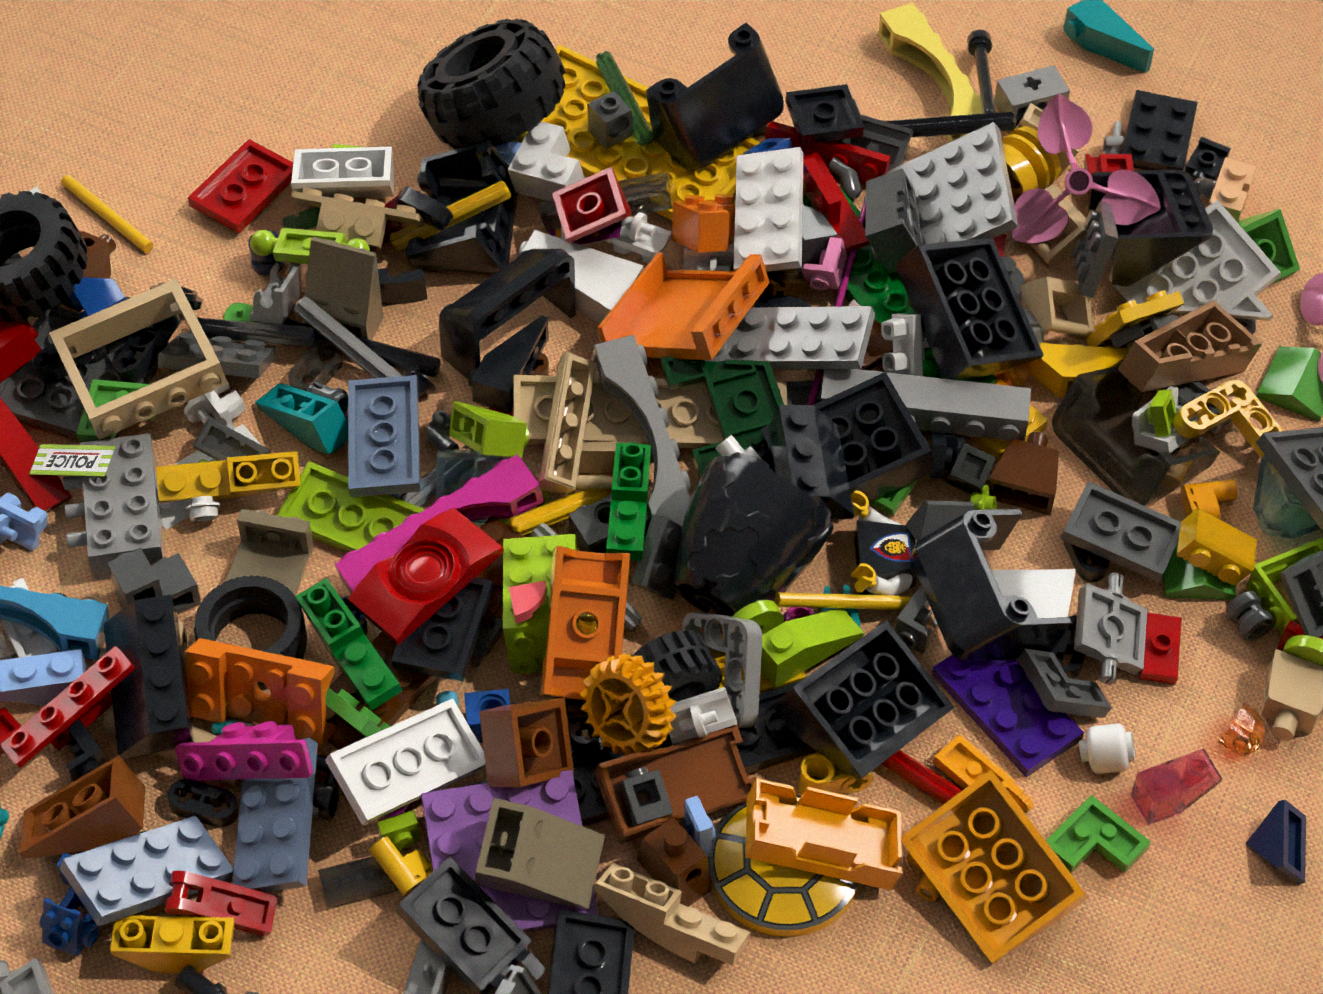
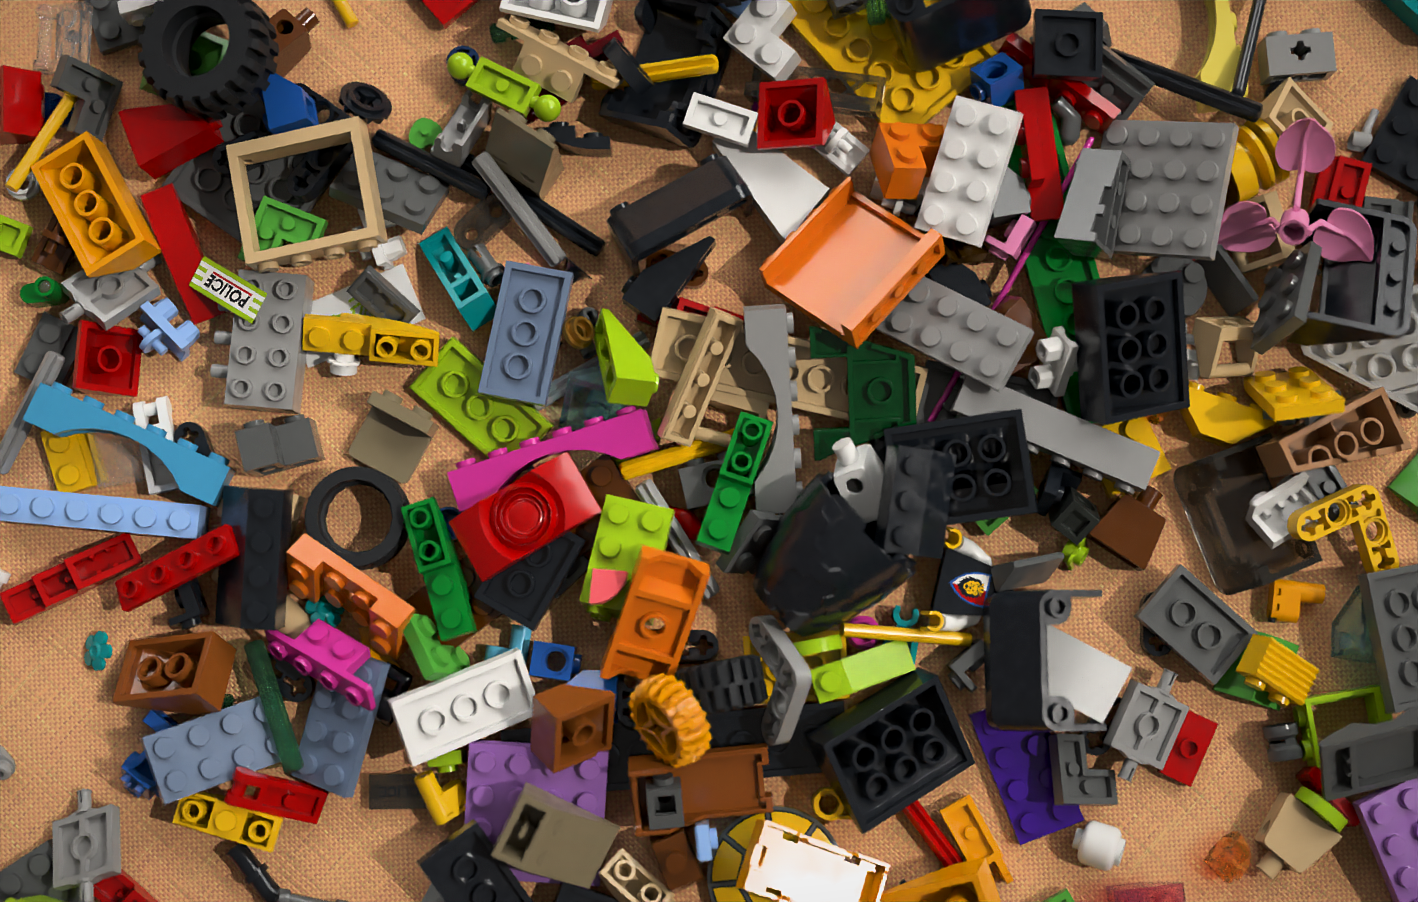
camera: 20 degrees right, 30 degrees up
(200, 819) = (274, 706): none -> clear green axle
(435, 426) = (578, 332): none -> pearl gold plate
(524, 229) = (720, 119): none -> white plate
(701, 715) = (738, 733): white hips -> none
(1037, 261) = (1227, 282): none -> dark grey slope
(1161, 413) = (1279, 509): lime plate -> none

